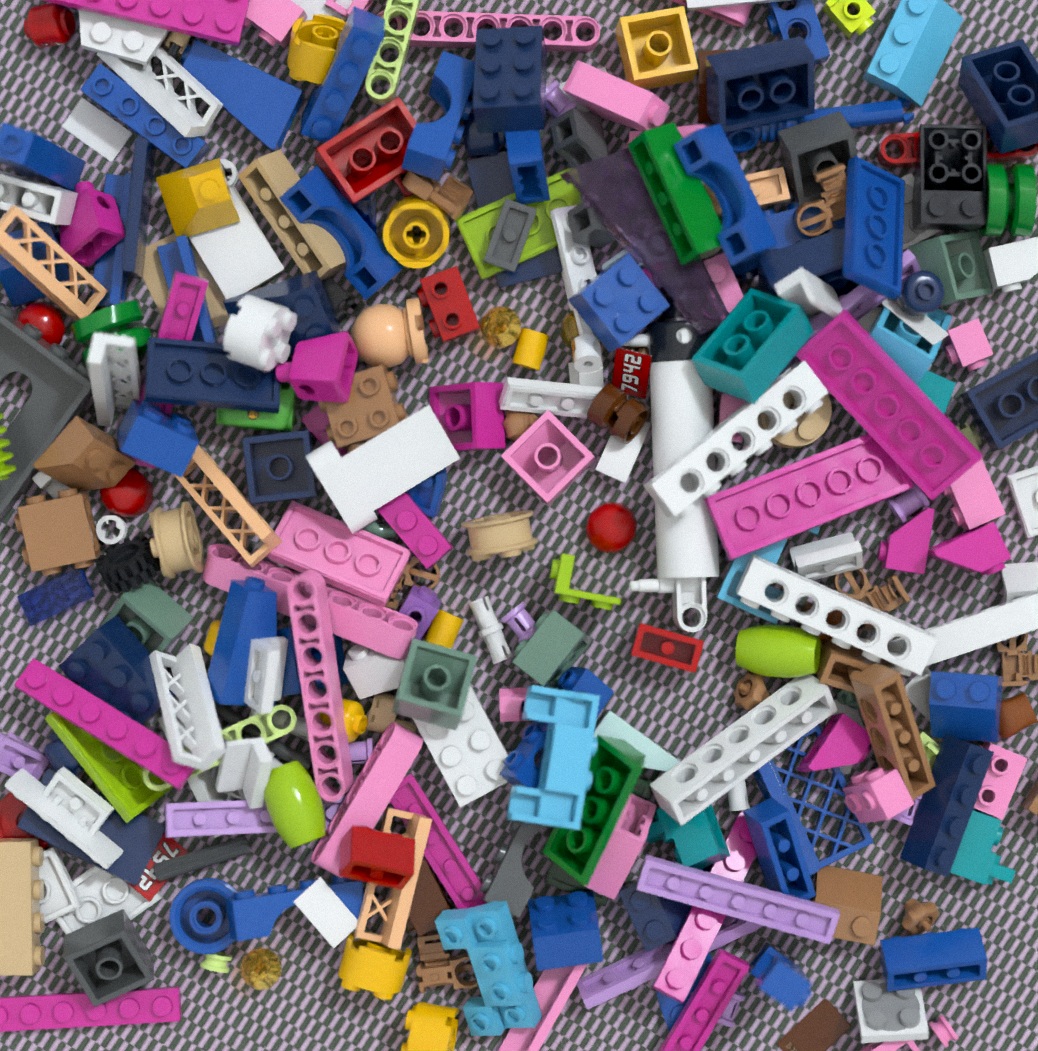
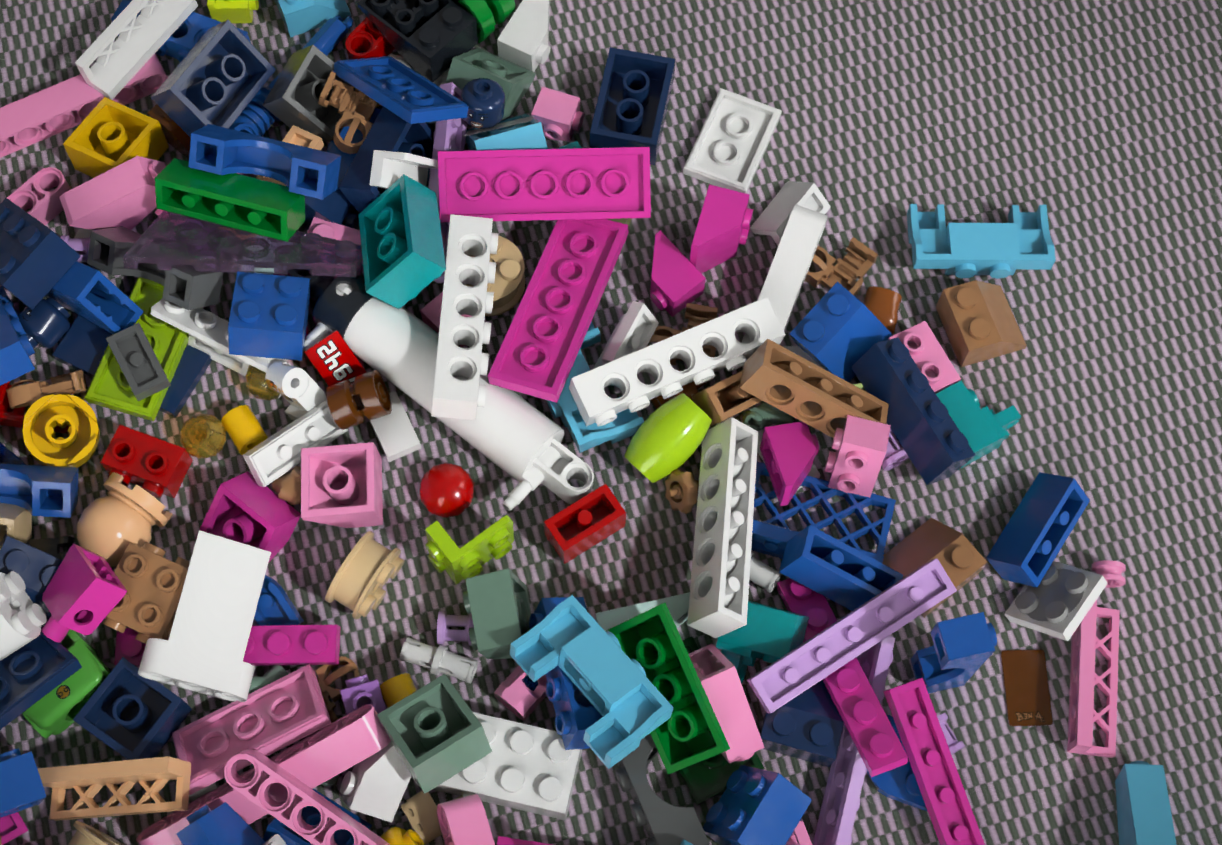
camera: 50 degrees left, 20 degrees down
(907, 503) = (638, 252): lavender bush -> none
(919, 916) = (990, 513): medium nougat piece -> none
(974, 498) = (676, 198): bright pink brick -> none

